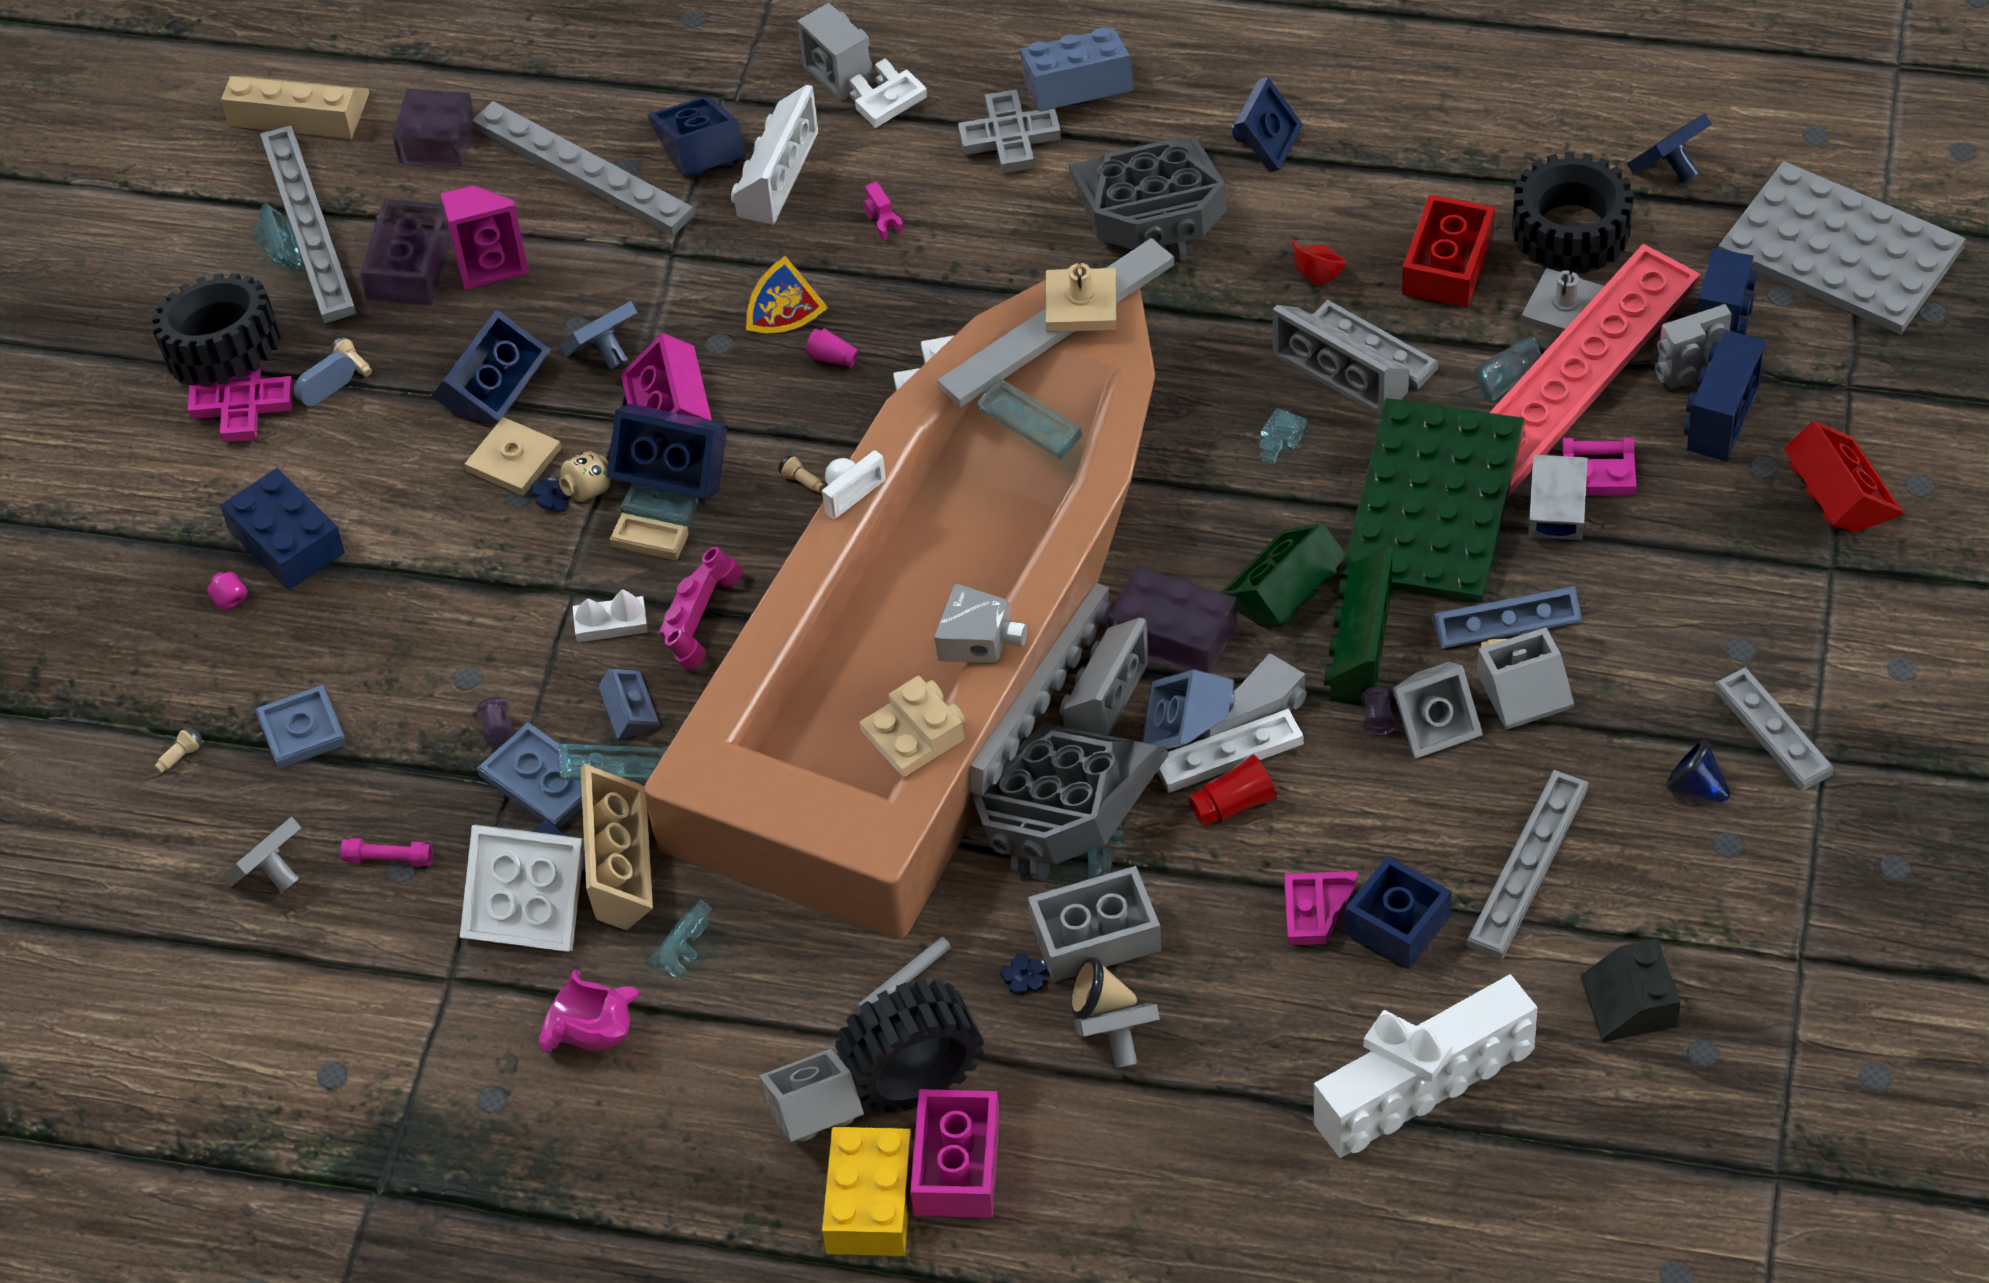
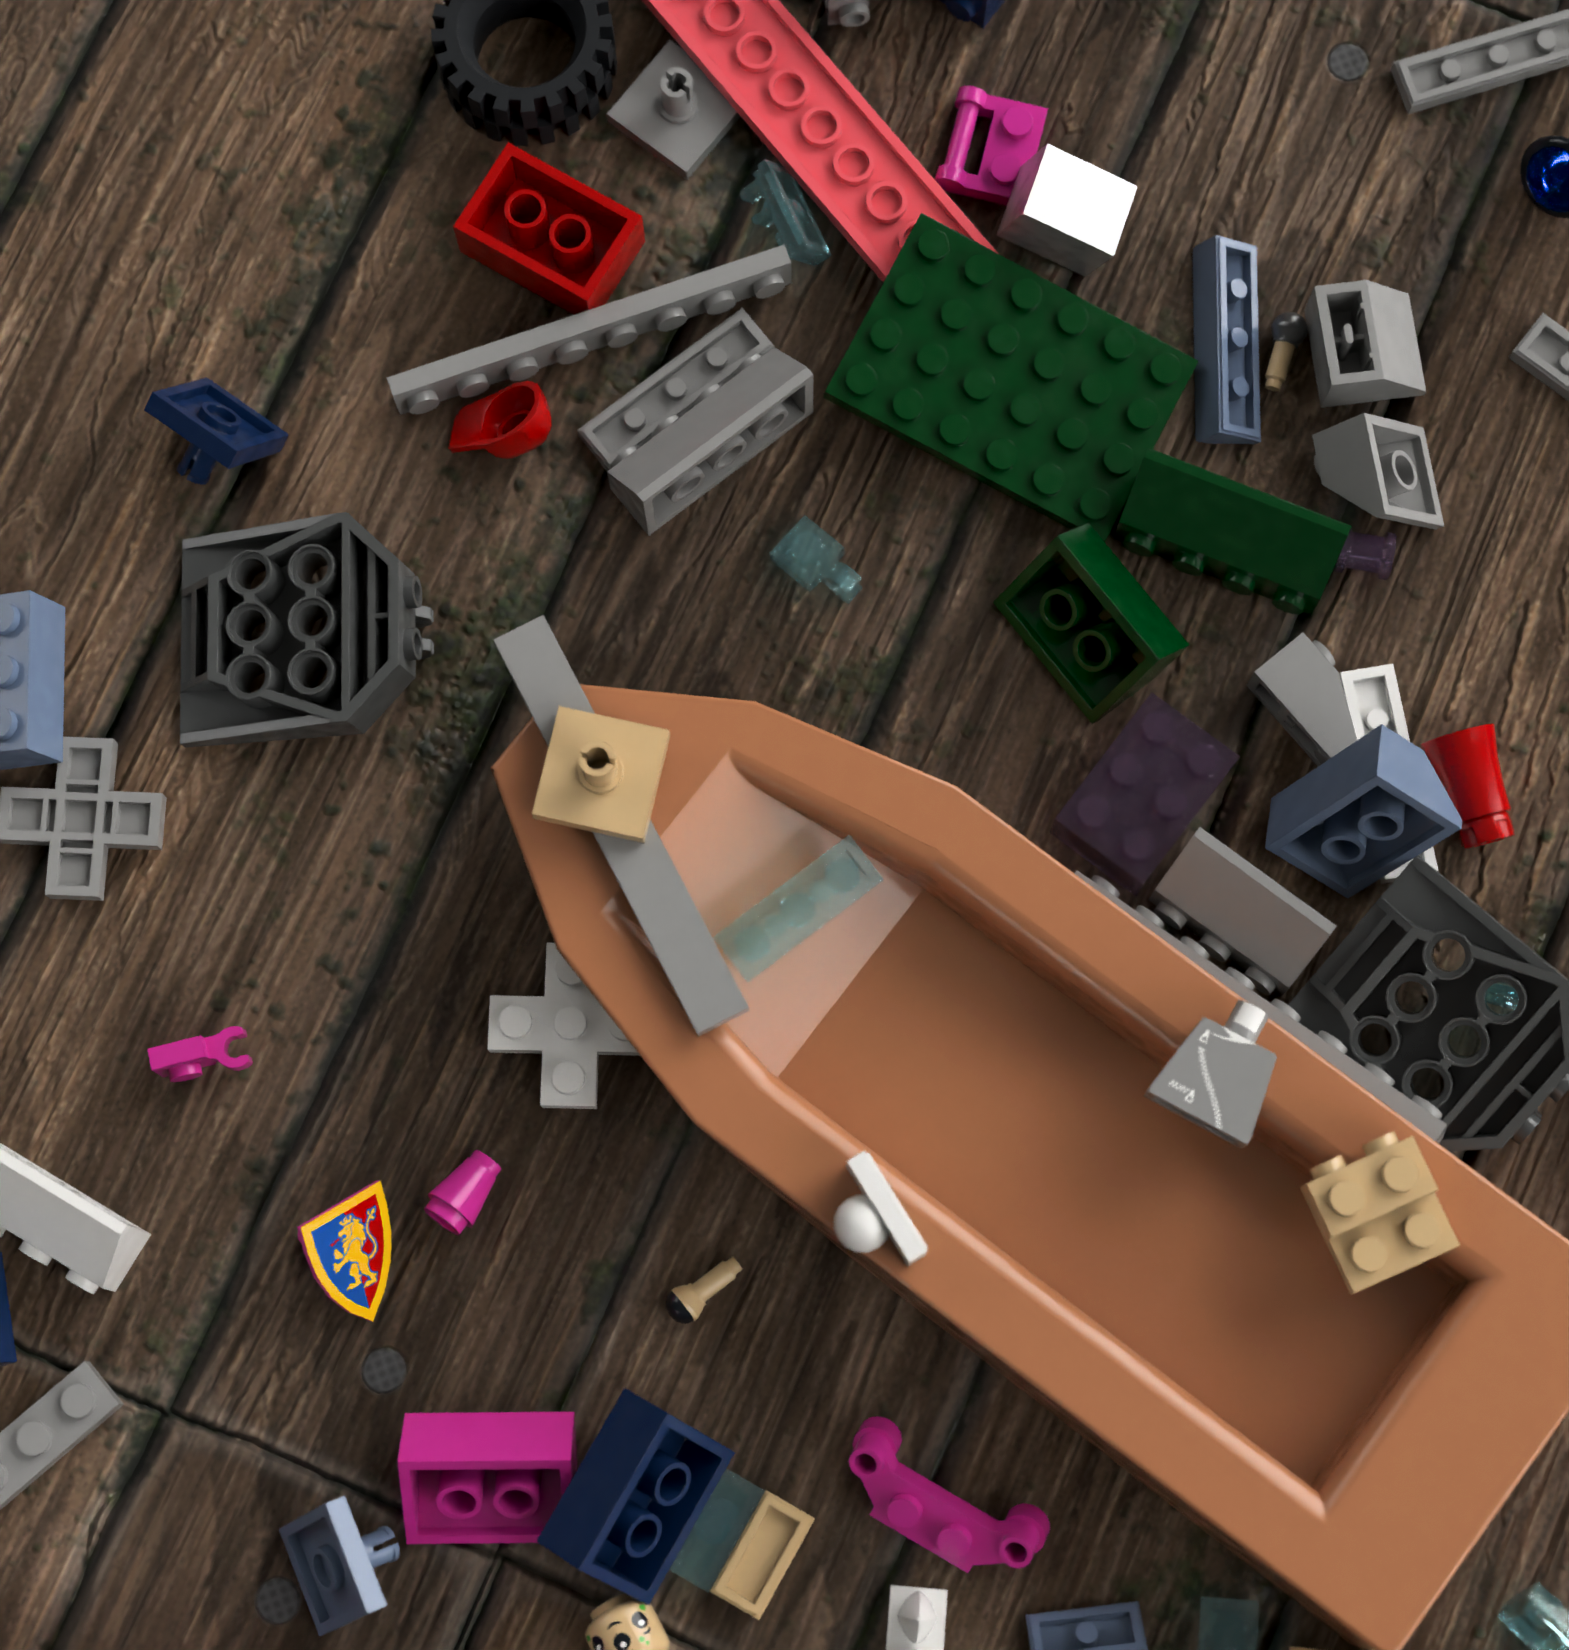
camera: 80 degrees left, 25 degrees up
(1395, 290) = (576, 335): none -> light grey plate

